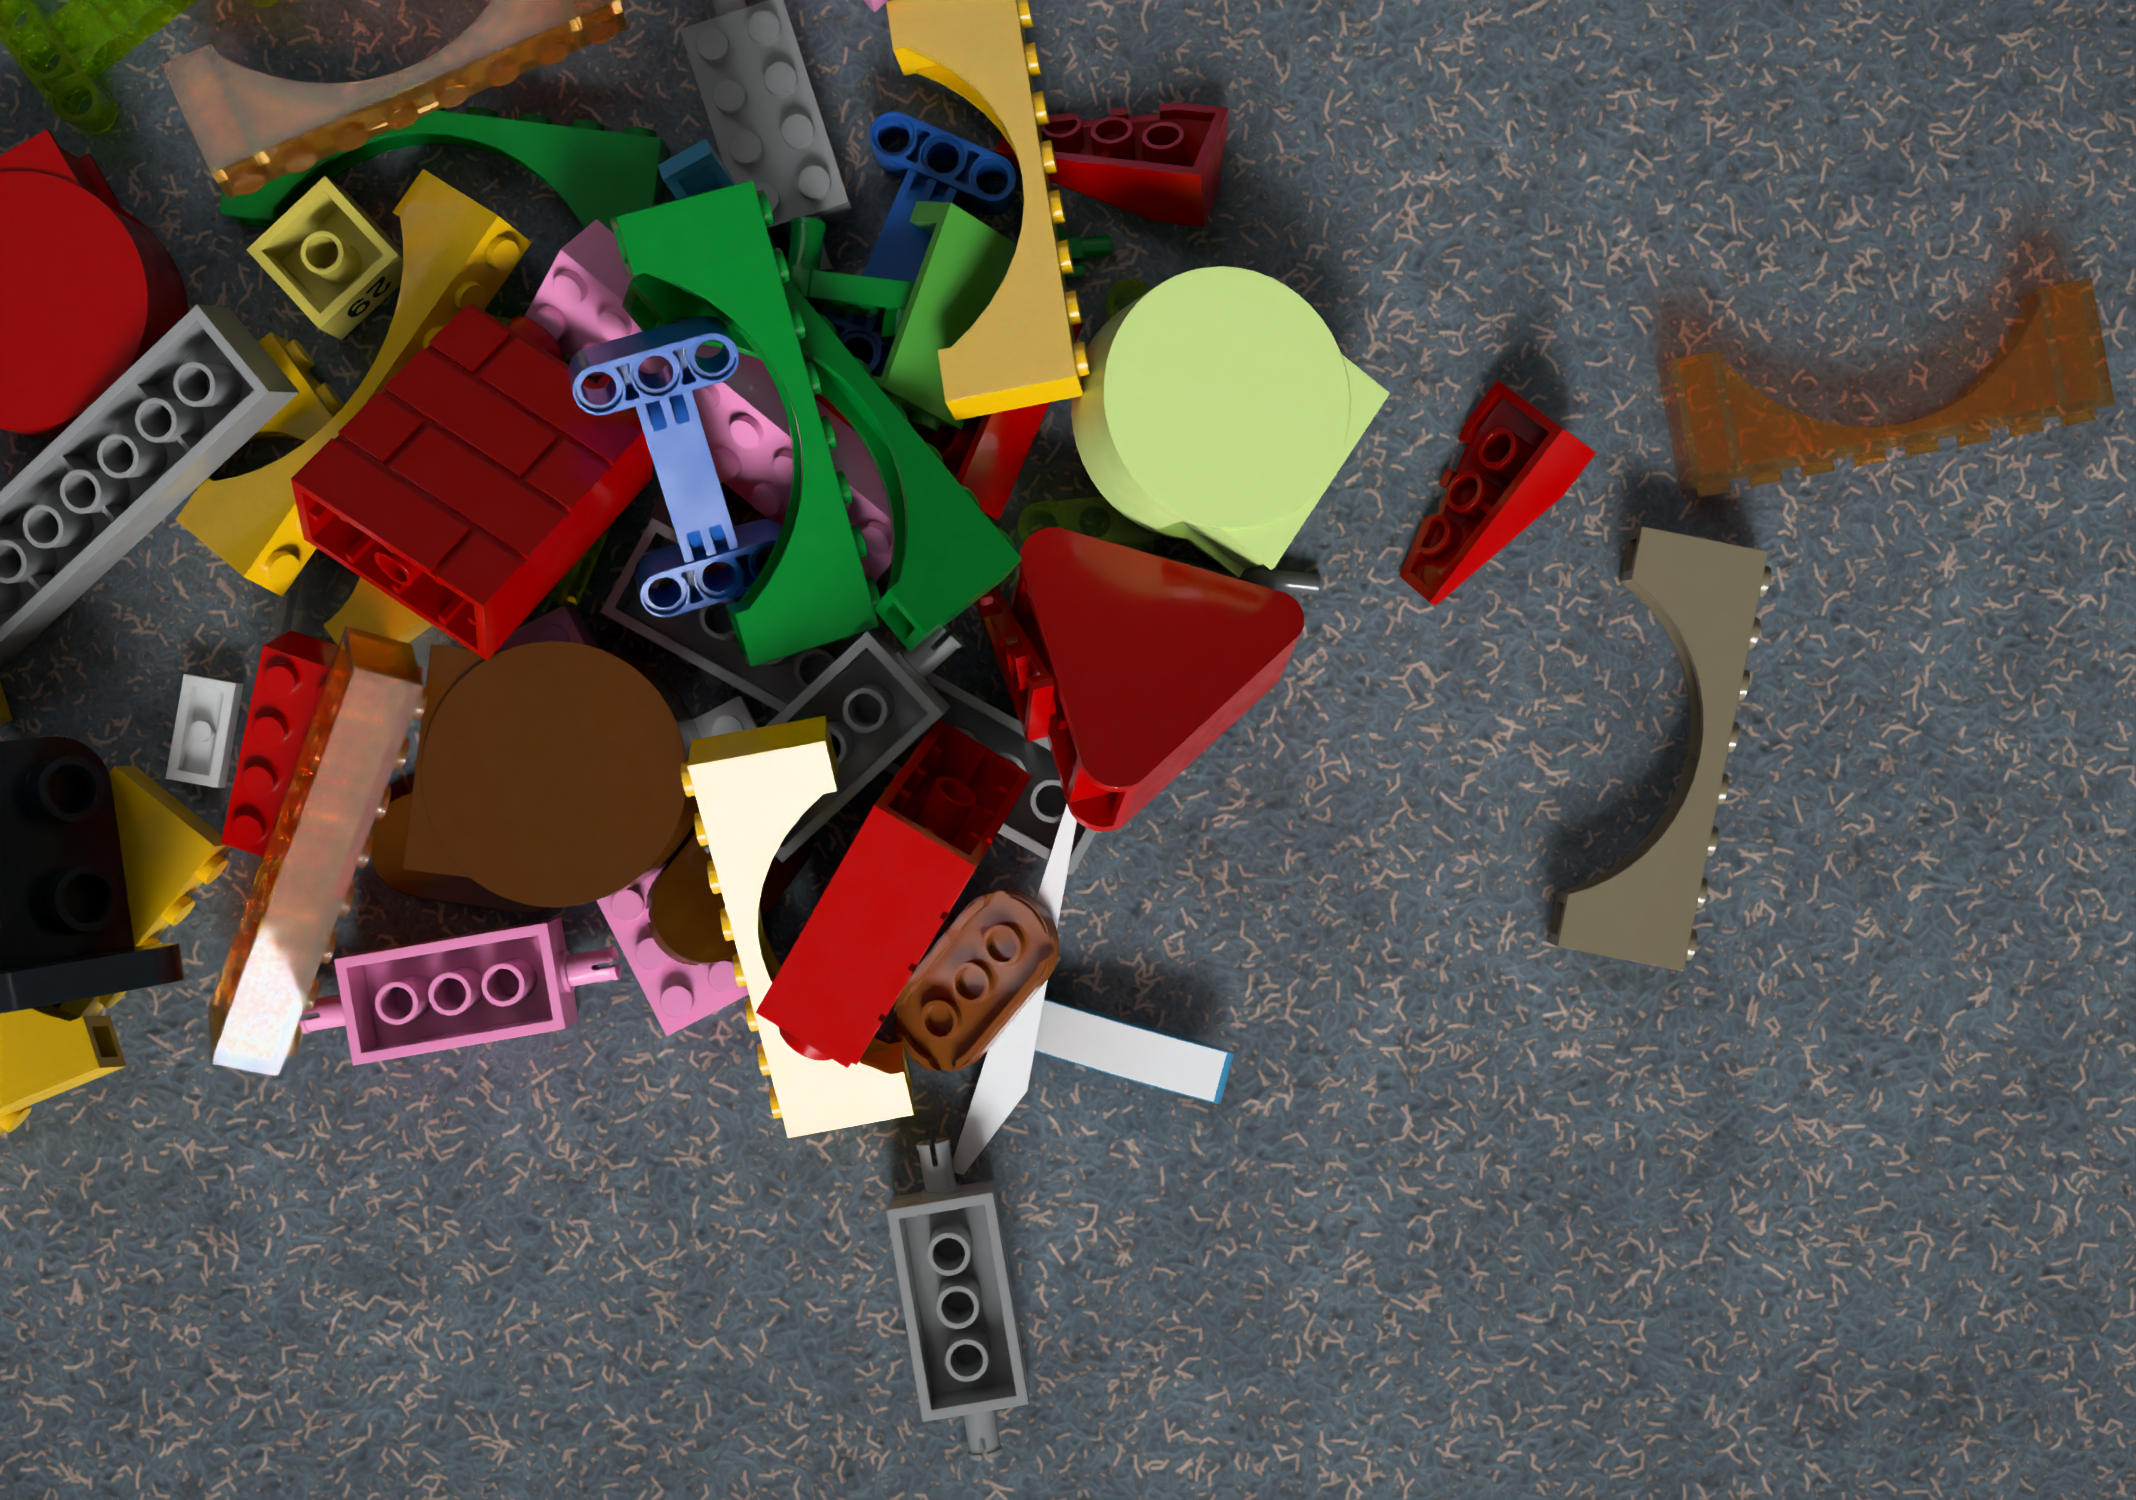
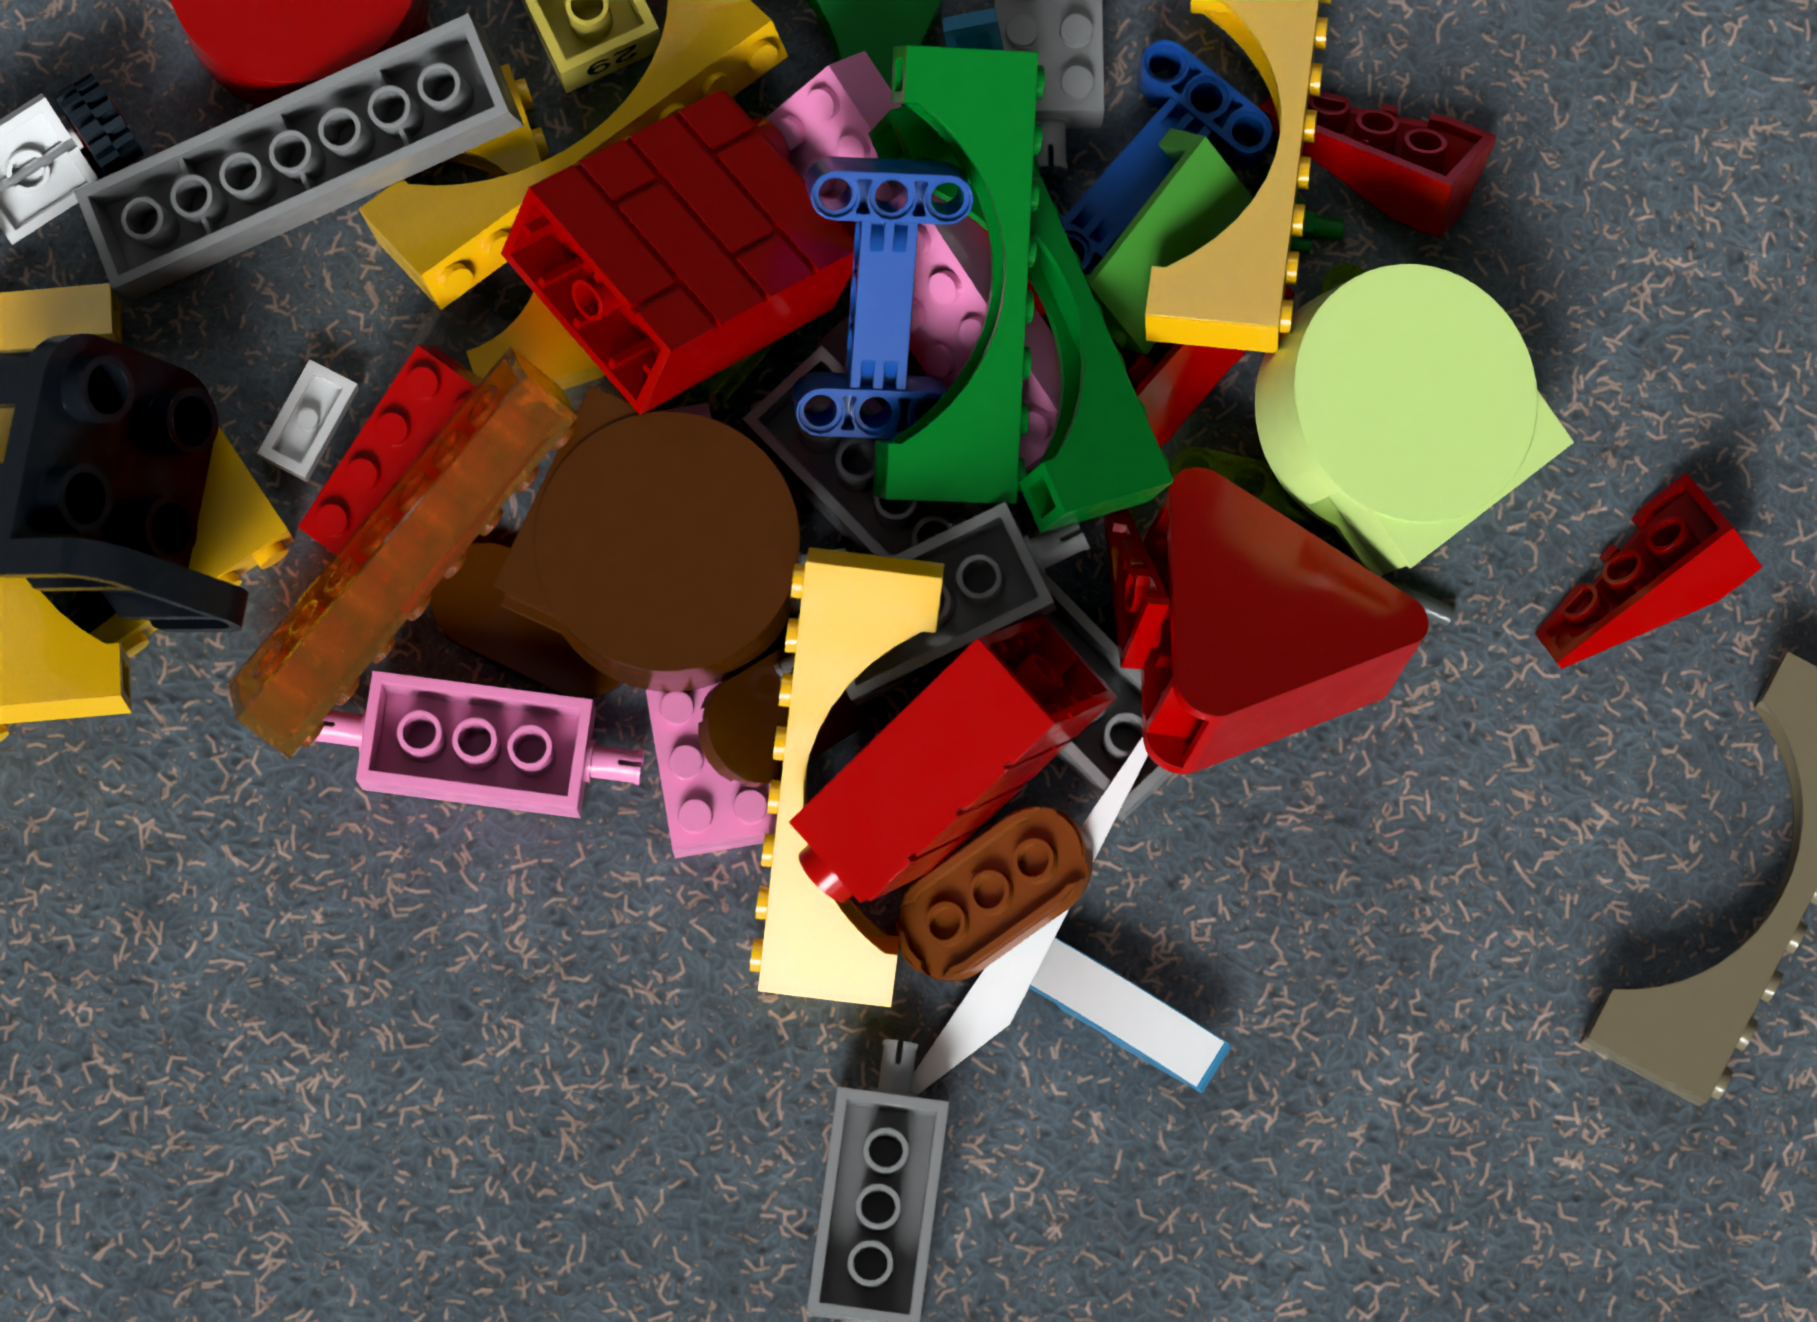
camera: 10 degrees right, 10 degrees down
(840, 291) = (1078, 191): green beam -> none

